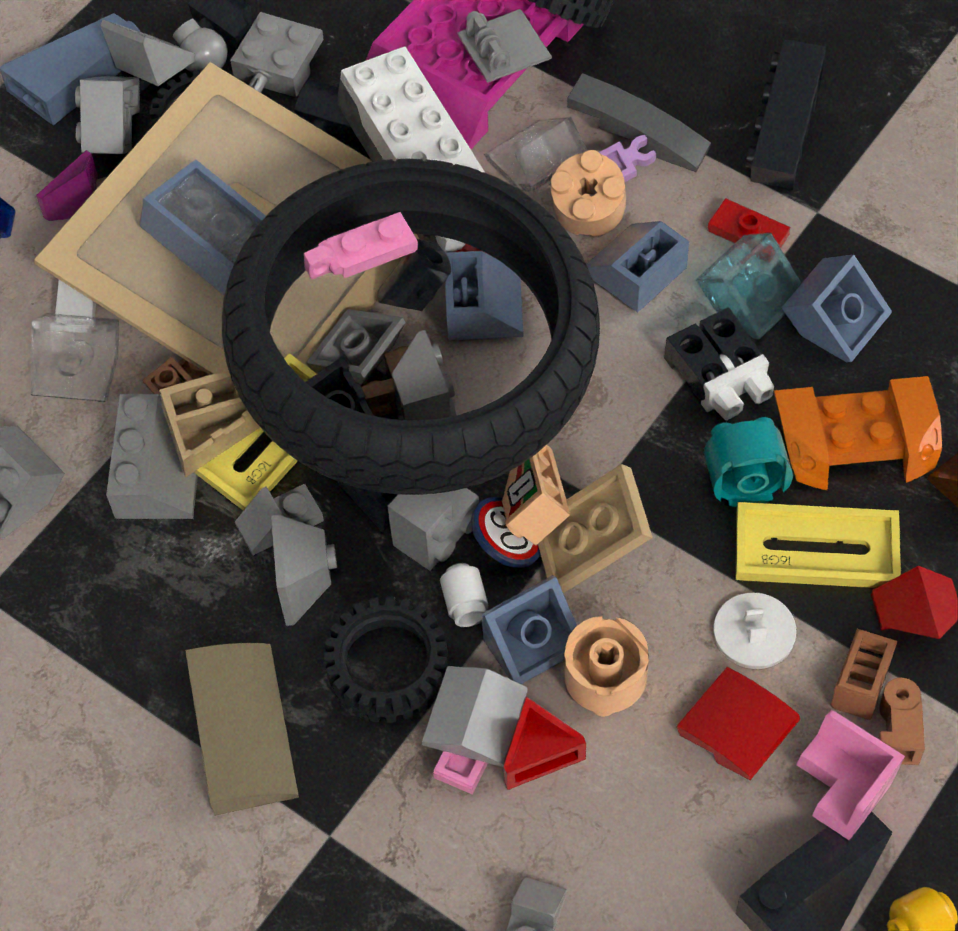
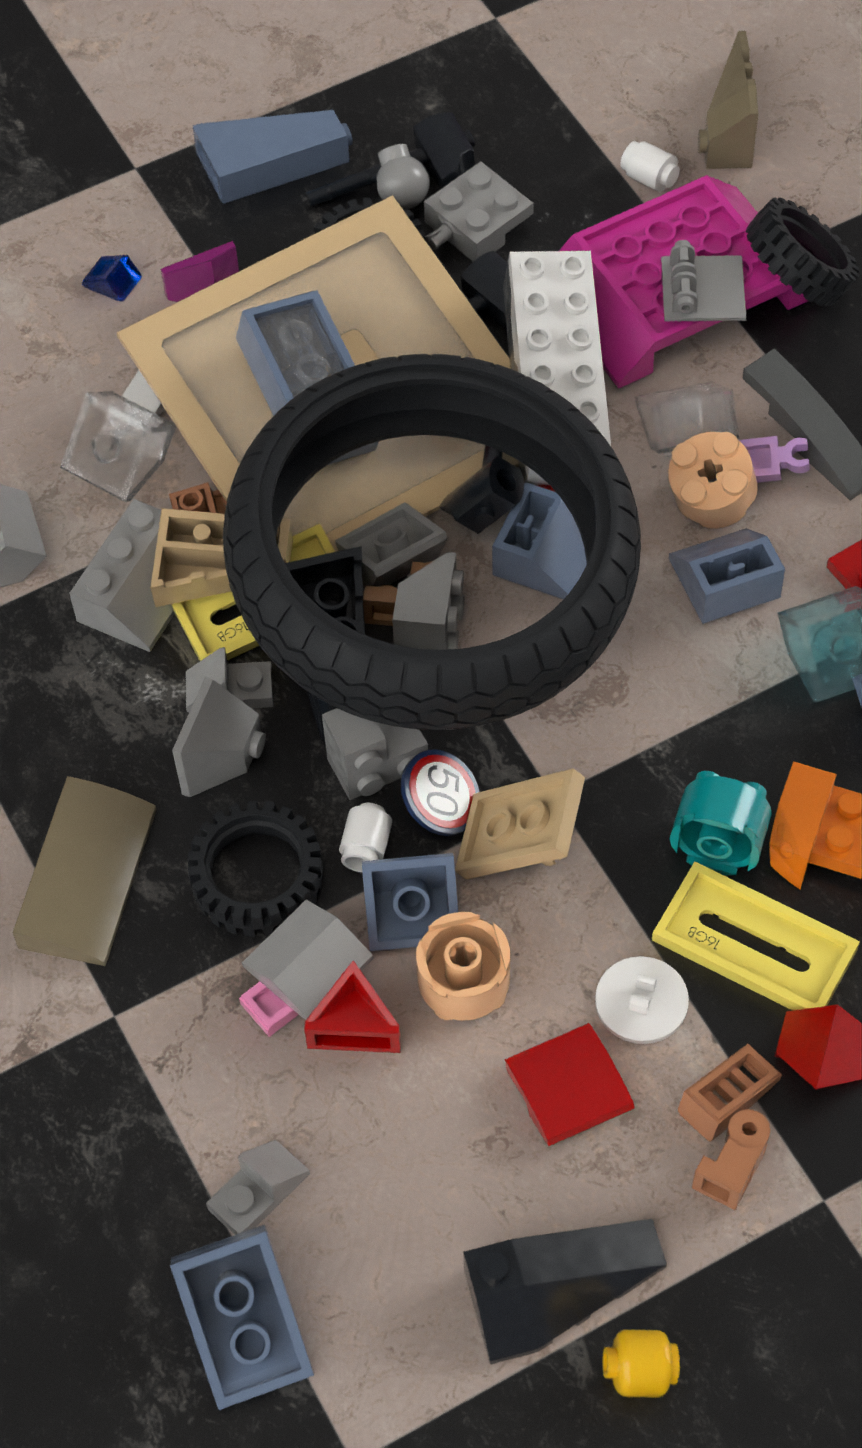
camera: 25 degrees right, 0 degrees up
(106, 113) = (271, 209): light grey brick -> none
(144, 54) = (340, 162): light grey slope -> none
(361, 248) = (407, 441): bright pink hinge -> none
(535, 498) = (486, 764): light nougat slope -> none
(720, 363) = (757, 725): black hips -> none
(854, 768) = (658, 1181): bright pink panel -> none

